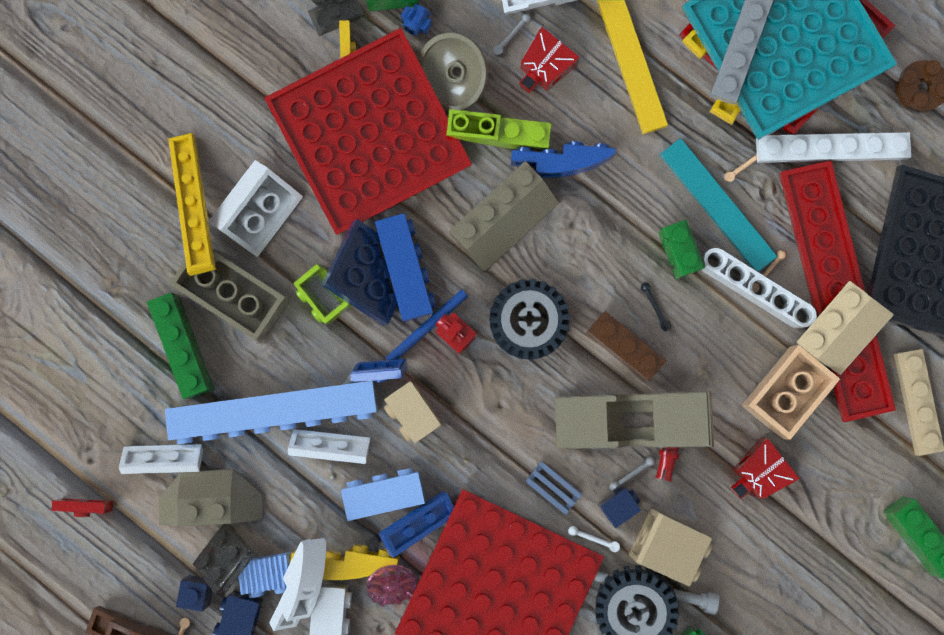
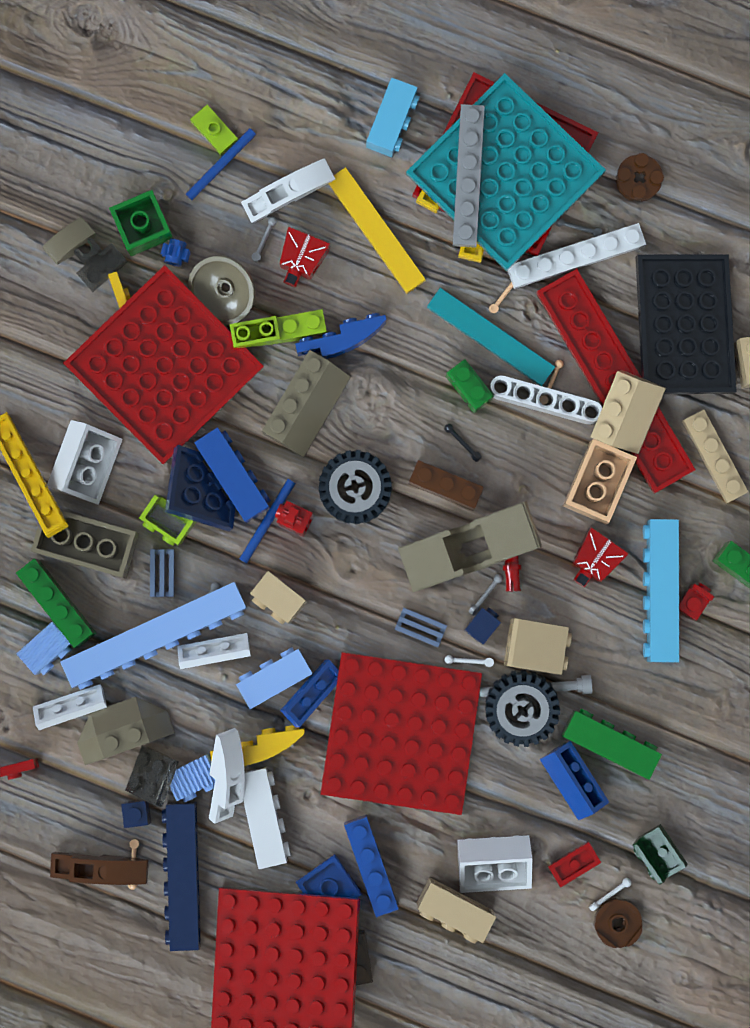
camera: 25 degrees left, 0 degrees up
(152, 391) = (44, 650): none -> light blue brick
(294, 368) = (162, 552): none -> sand blue tile
(379, 370) = (237, 572): blue plate -> none
(391, 585) = (304, 754): clear pink wheel -> none
(822, 529) = (662, 590): none -> medium azure brick
(853, 549) = (695, 600): none -> red bracket

